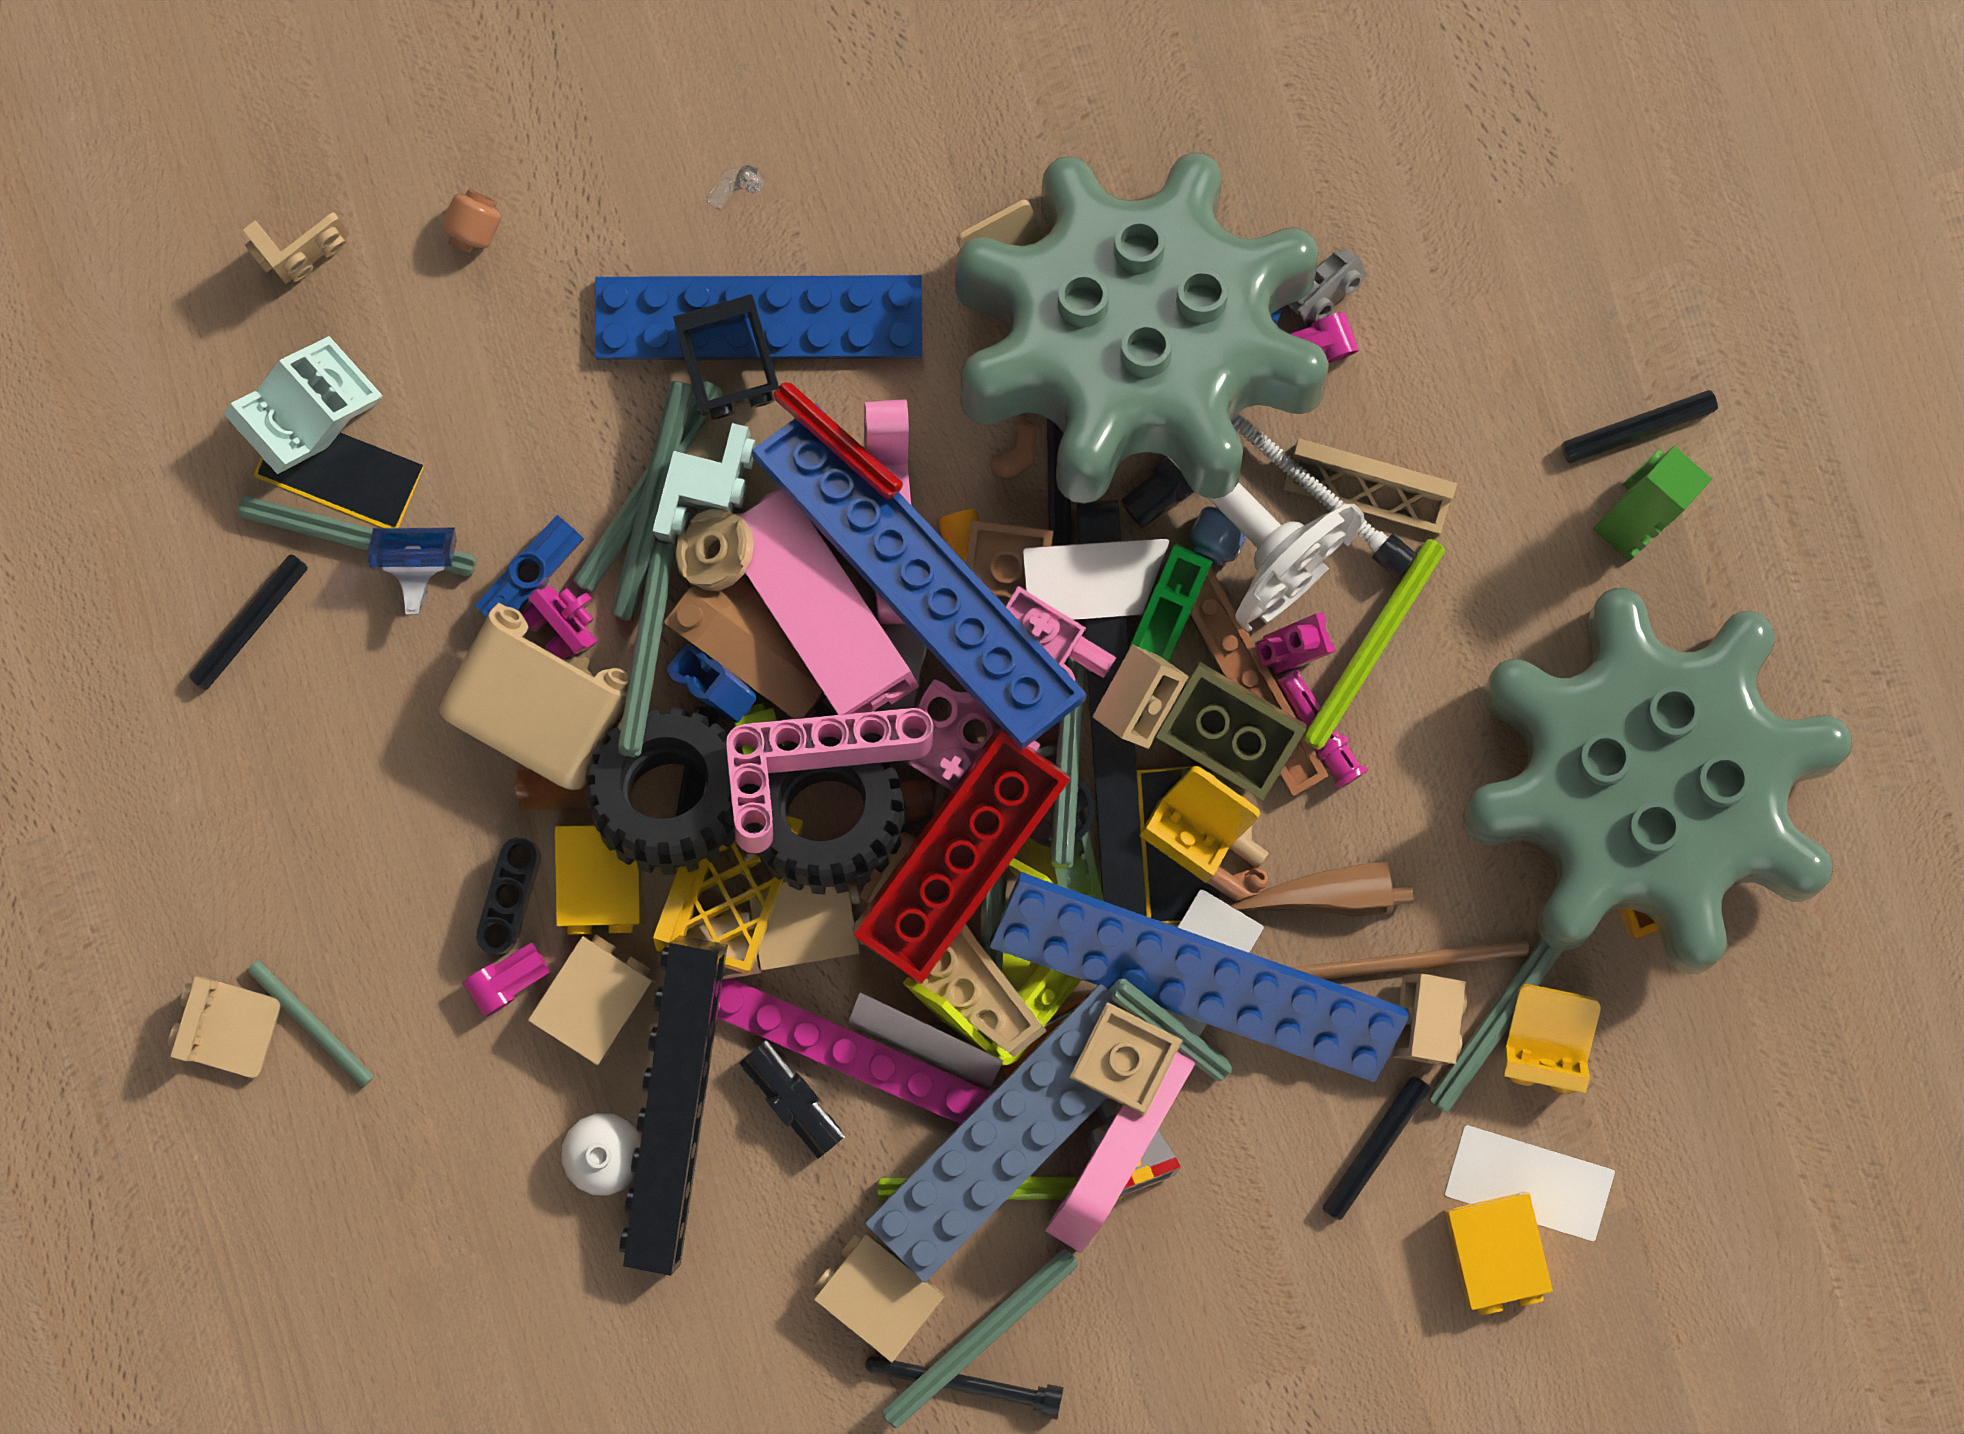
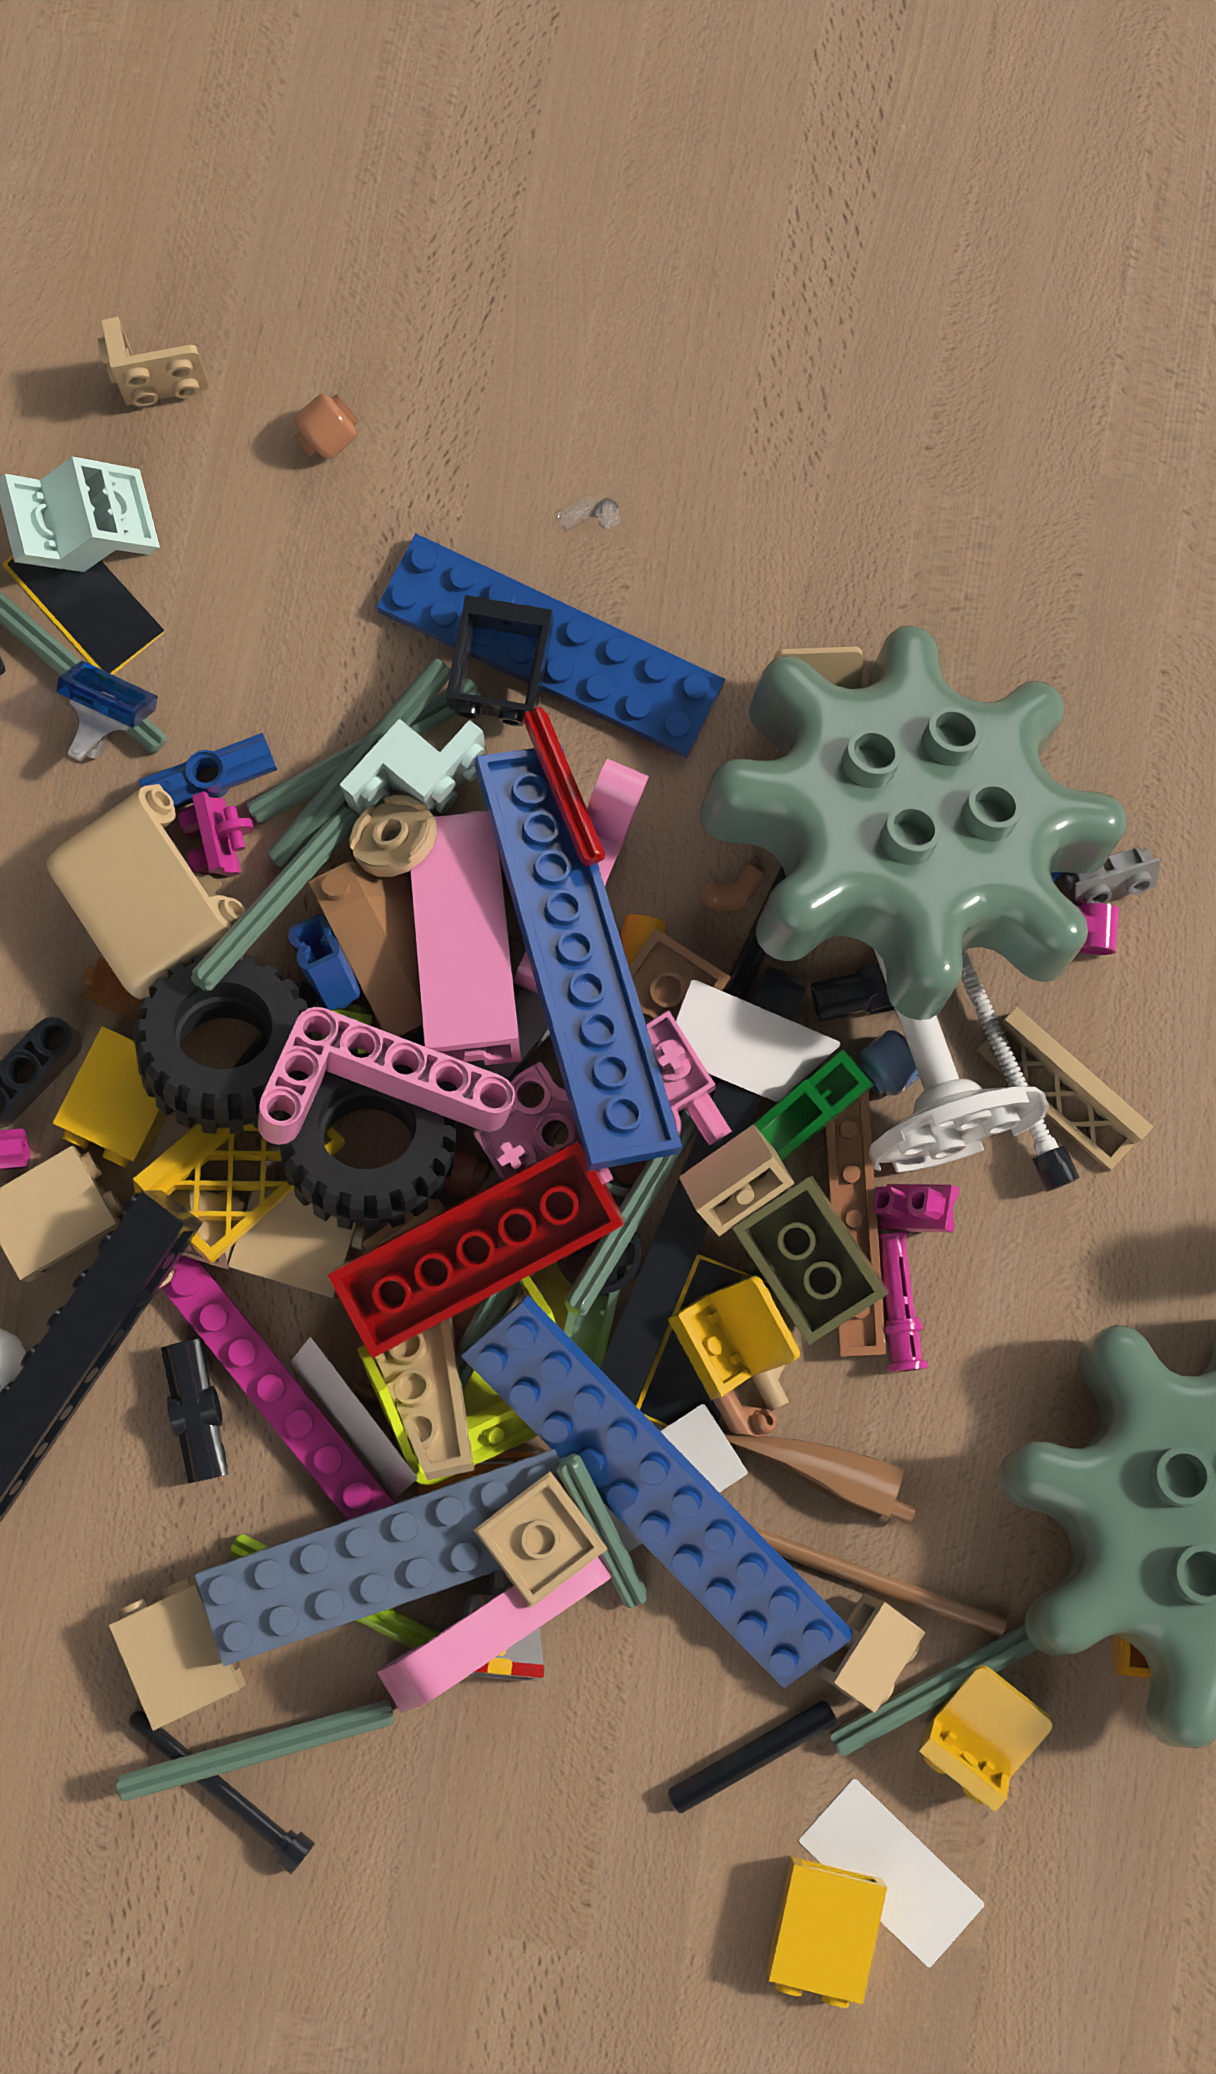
camera: 25 degrees right, 5 degrees down
(1374, 644) = (993, 1245): lime axle -> none

